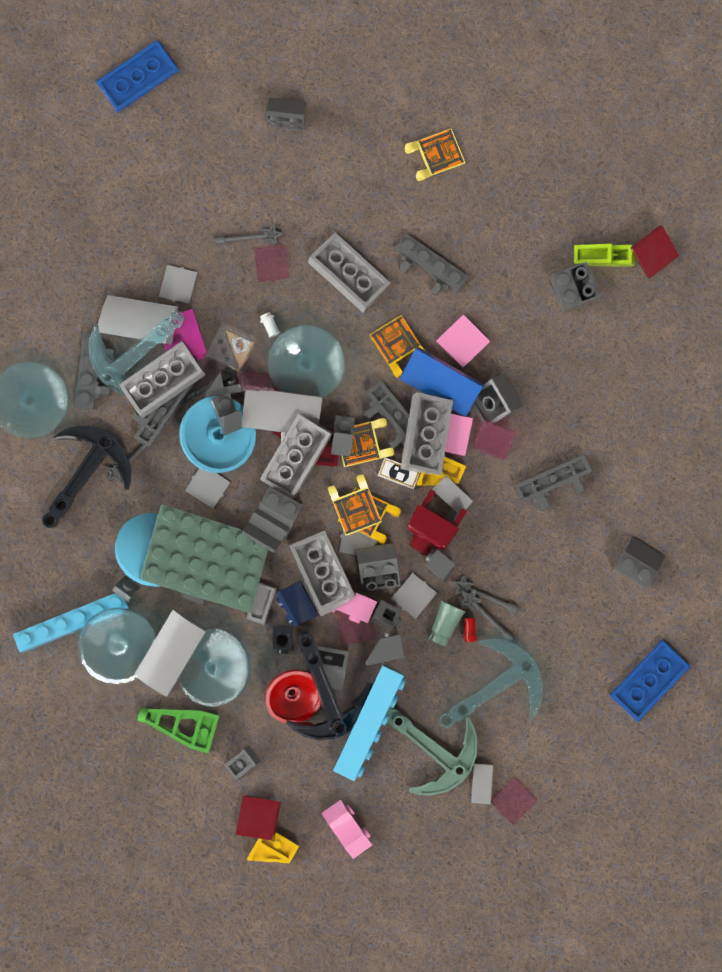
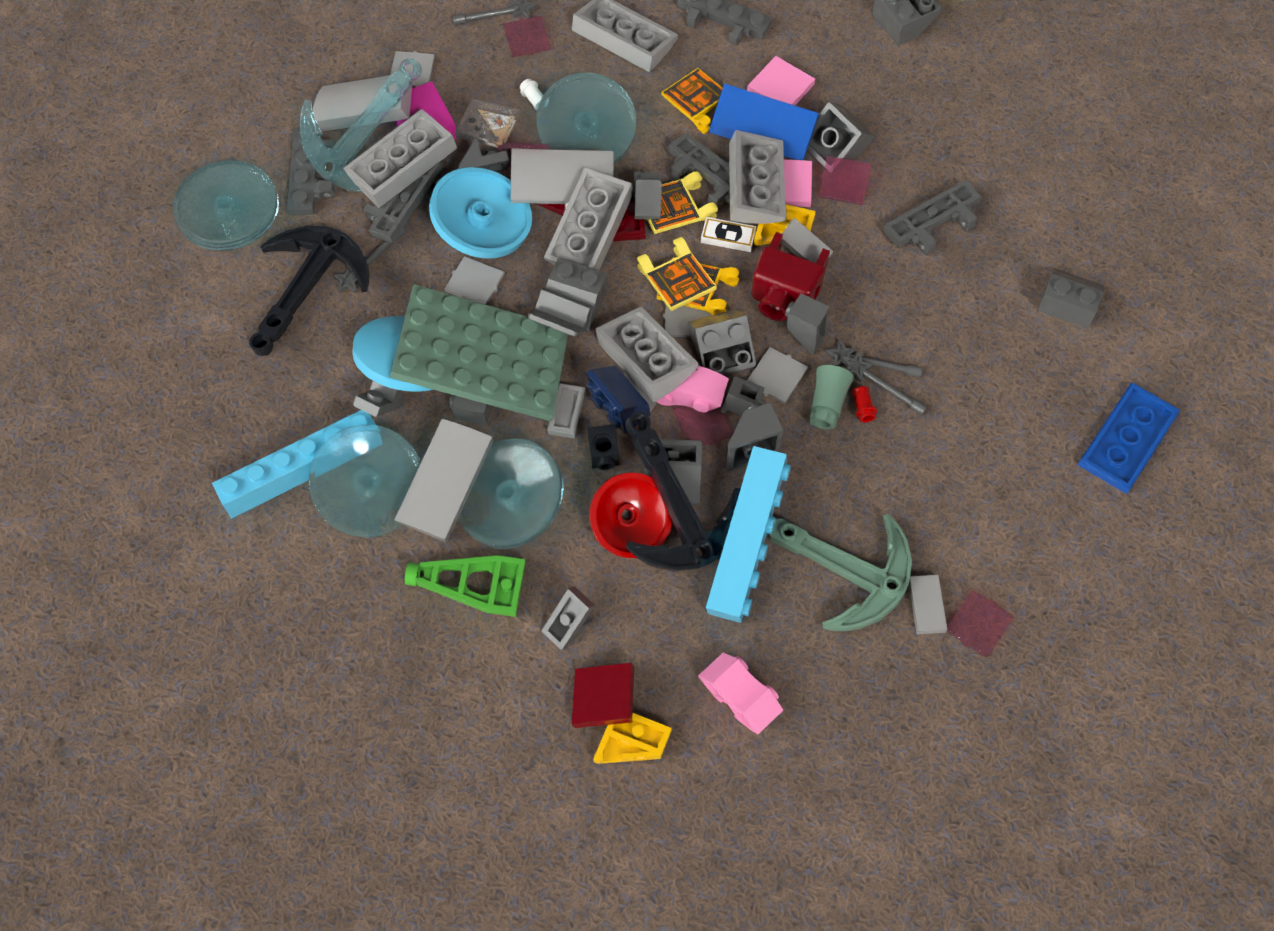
camera: 10 degrees left, 20 degrees down
(227, 415) = (491, 183): dark grey slope -> none
(514, 674) = (928, 460): clear light blue piece -> none

